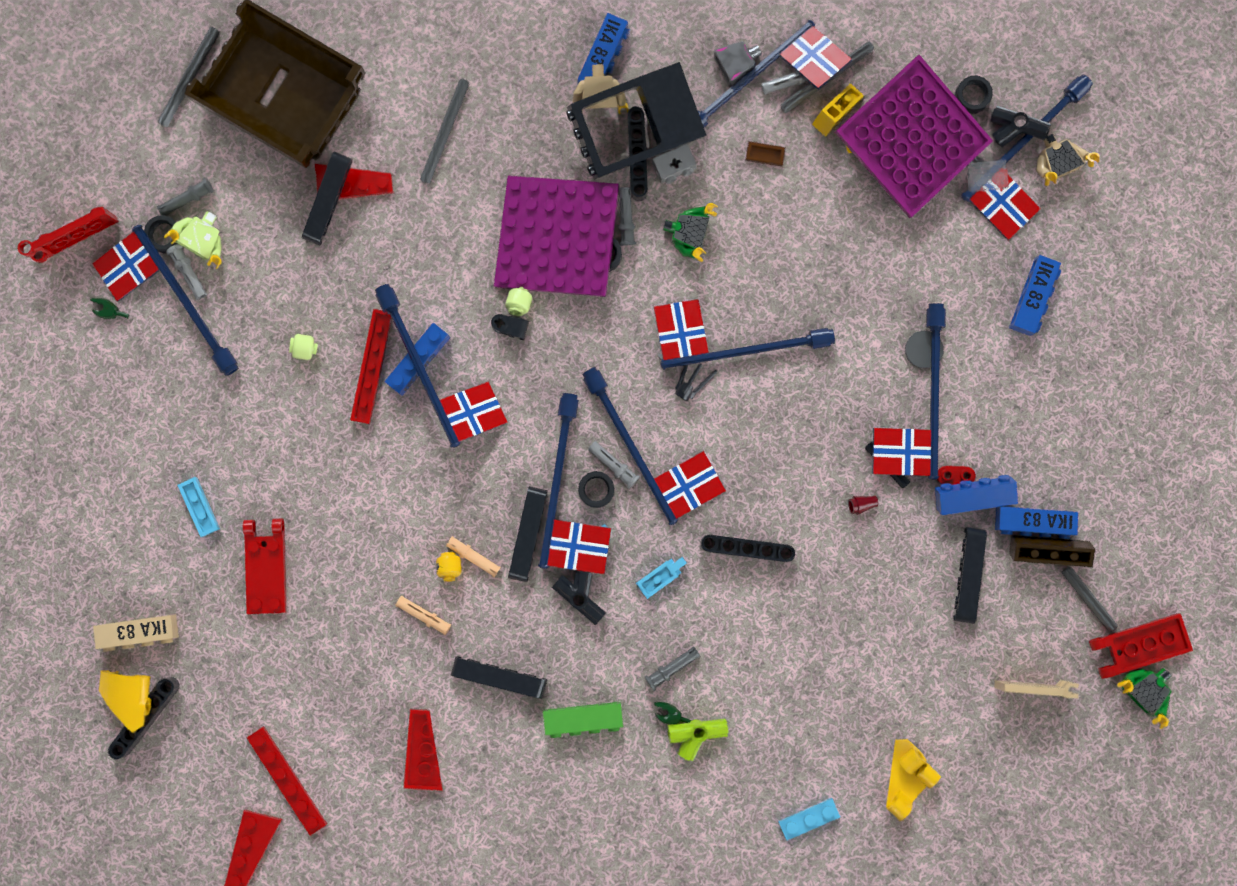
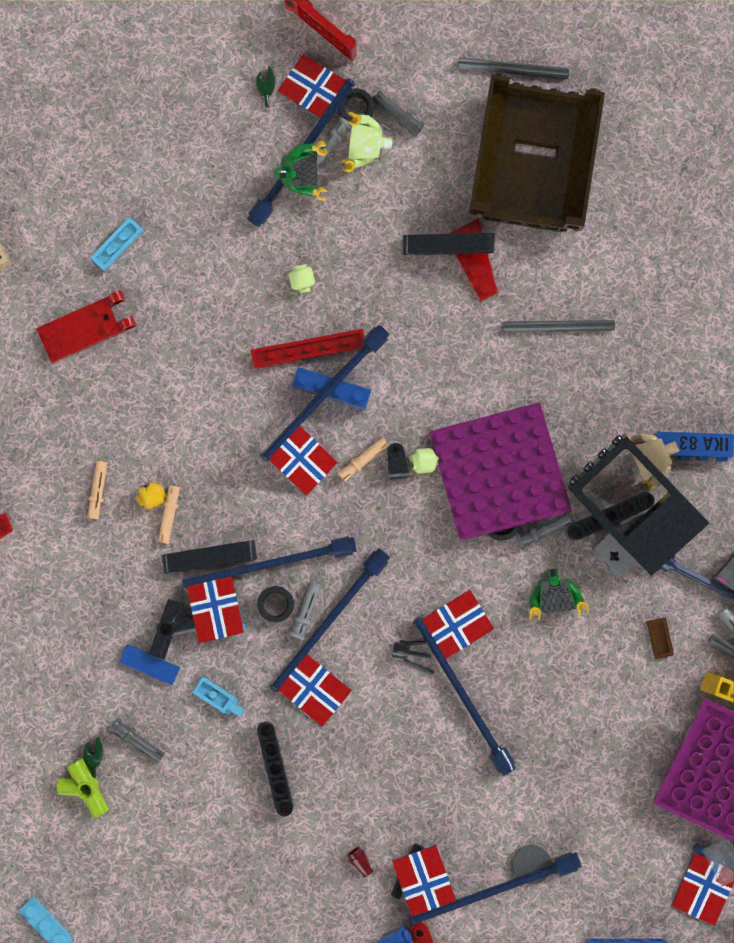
camera: 65 degrees right, 0 degrees up
(199, 306) = (300, 169): none -> torso
(497, 364) = (356, 464): none -> light nougat pin
(498, 678) = (65, 580): black beam -> none
(583, 718) = (58, 676): bright green brick -> none
(605, 629) = (149, 664): none -> blue tile

